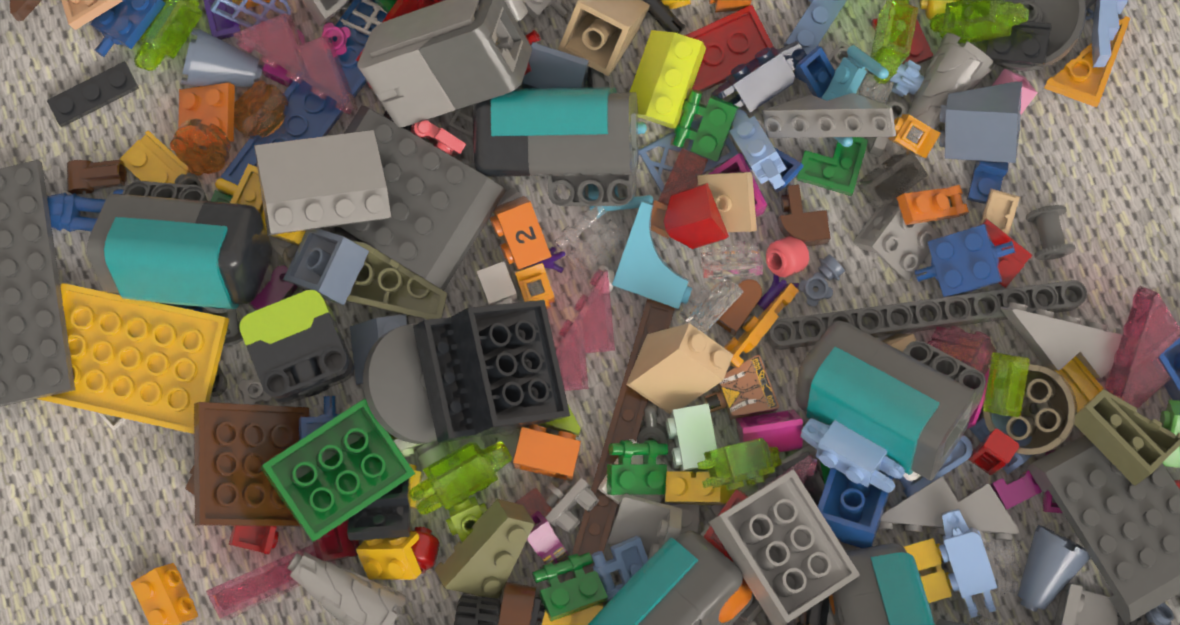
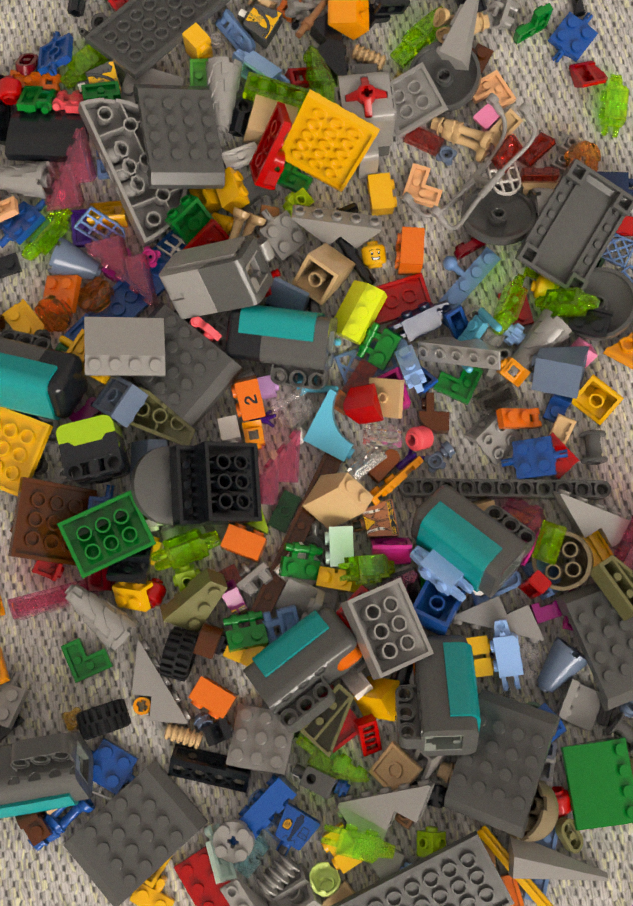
camera: 10 degrees right, 0 degrees up
(546, 212) = (267, 387): none -> lavender plate
(599, 397) = (284, 511): none -> dark green plate
(1045, 159) = (597, 399): none -> yellow slope

